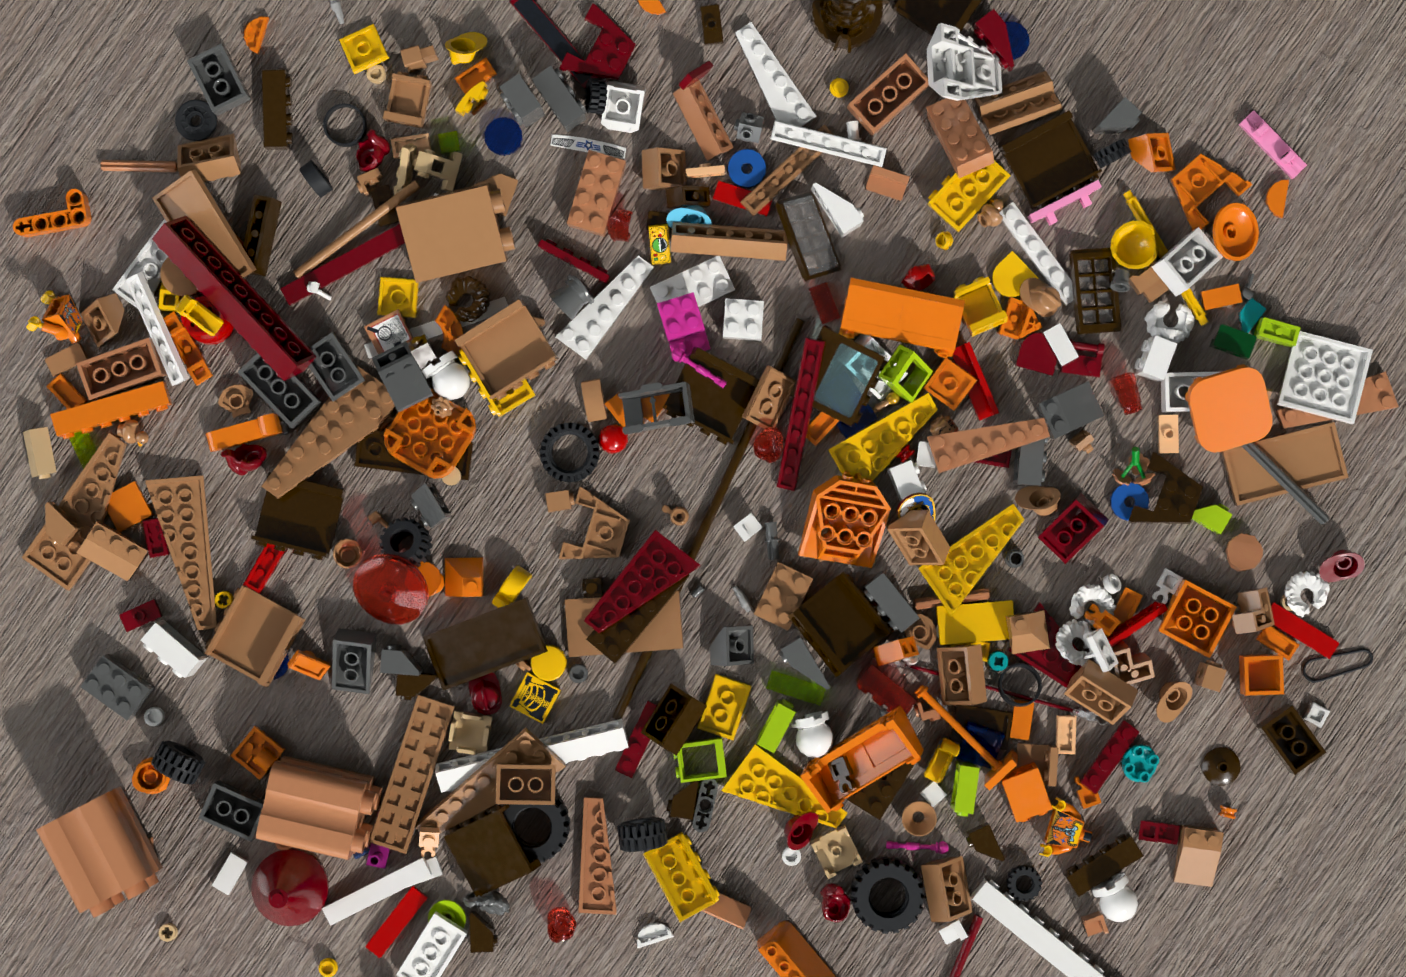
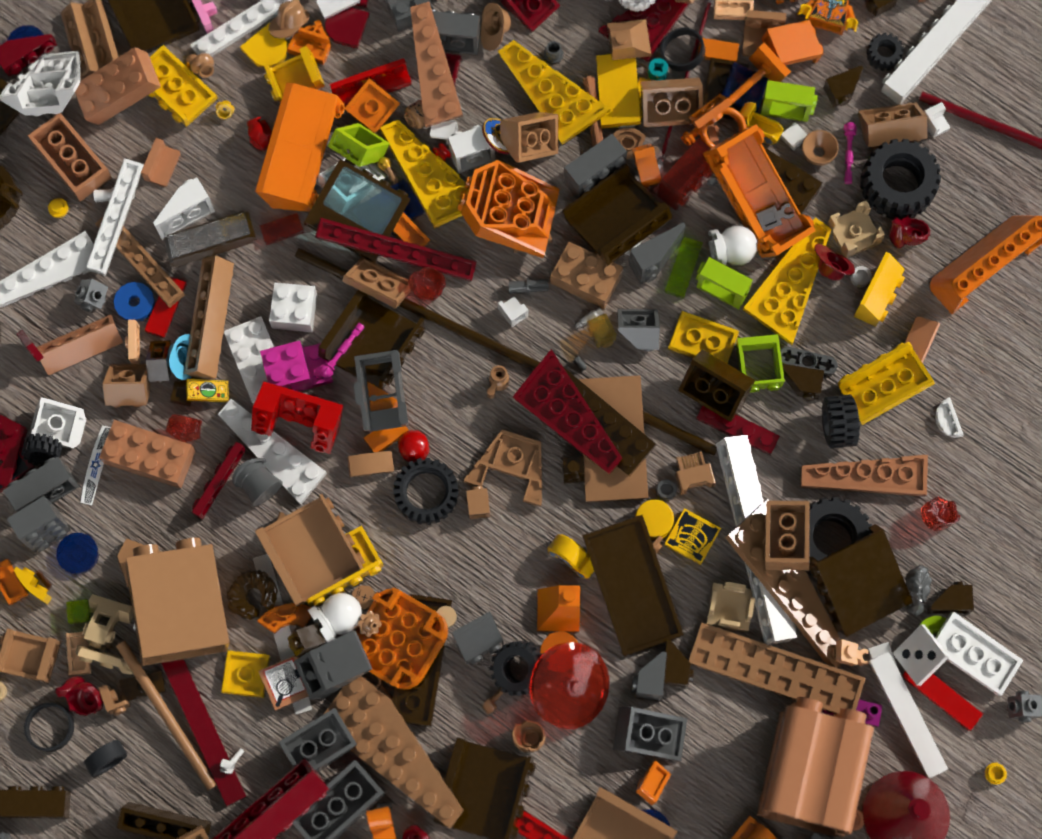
camera: 85 degrees left, 15 degrees down
(427, 903) = (920, 655): none -> white tile
(471, 400) = (364, 596): none -> medium nougat piece
(485, 694) = (688, 590): dark red piece -> none
(594, 698) = (693, 472): none -> medium nougat piece
(642, 324) = (295, 406): none -> red plate
(727, 611) = (601, 331): none -> clear yellow brick
(773, 873) = (881, 291): none -> yellow slope
(944, 713) = (712, 113): none -> orange tile

